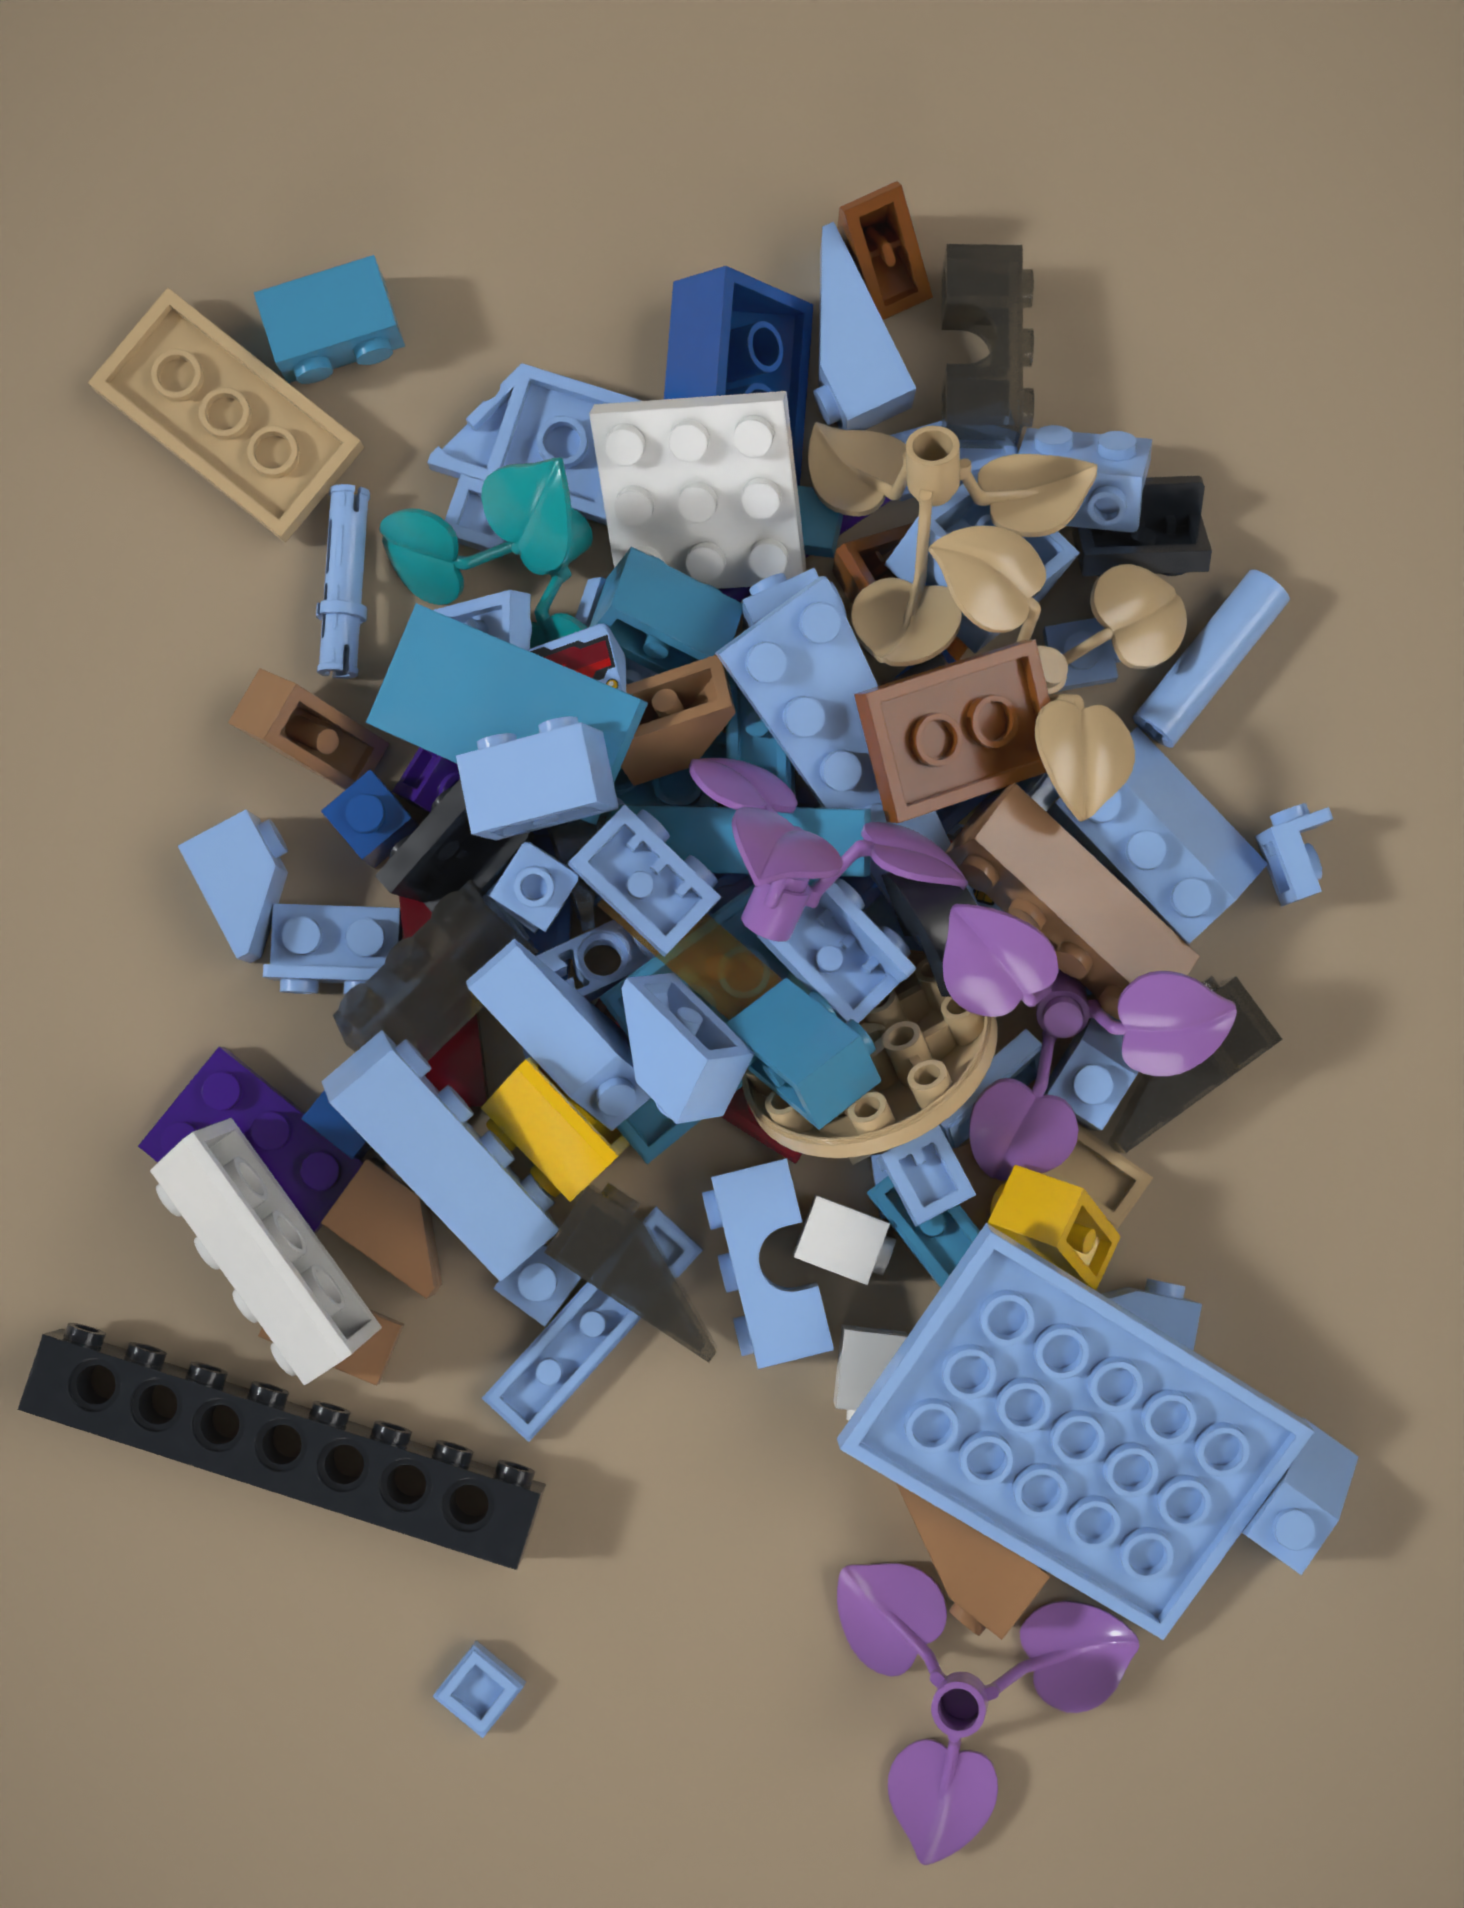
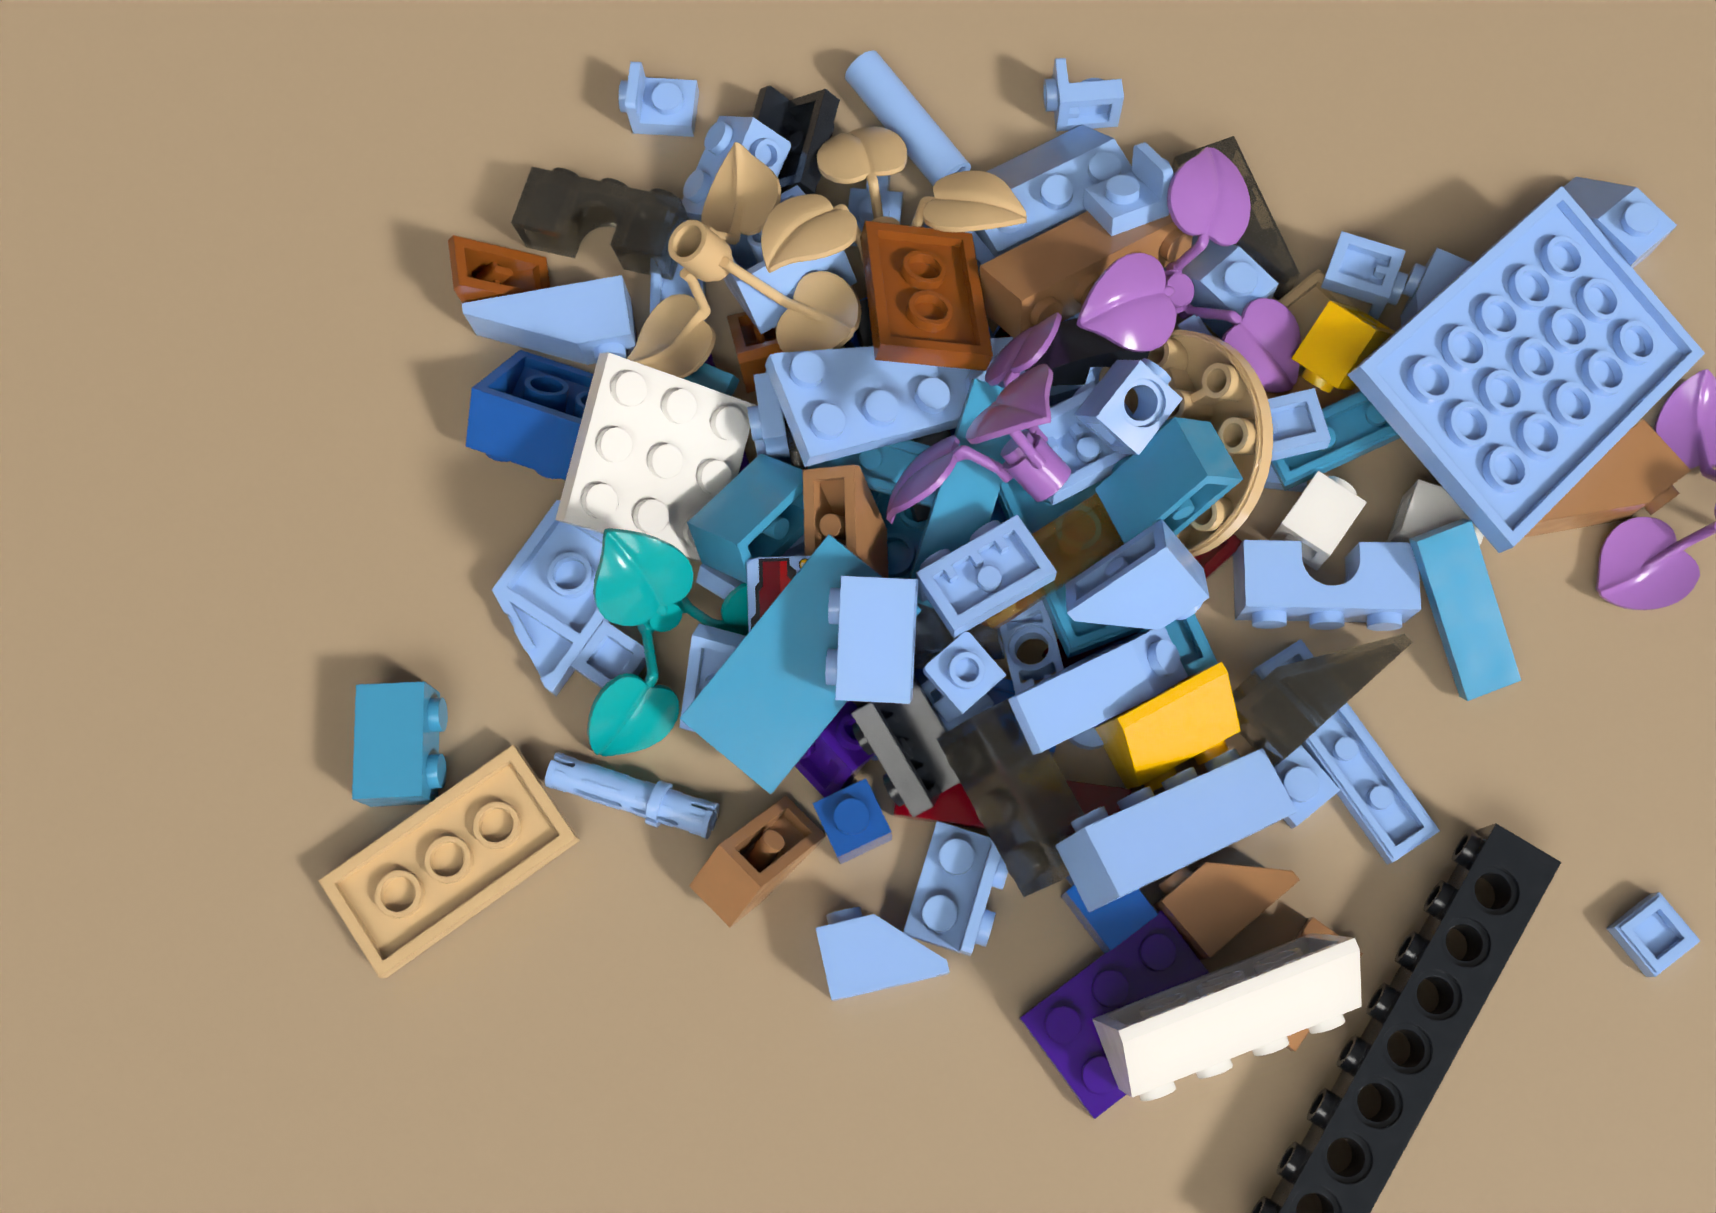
camera: 70 degrees left, 10 degrees down
(775, 1418) = (1465, 609): none -> dark azure tile
(850, 1001) = (1105, 410): none -> light blue brick
(1154, 933) = (1134, 196): none -> light blue bracket
(1155, 1230) = (1366, 272): none -> light blue bracket
(1157, 364) = (659, 104): none -> light blue bracket

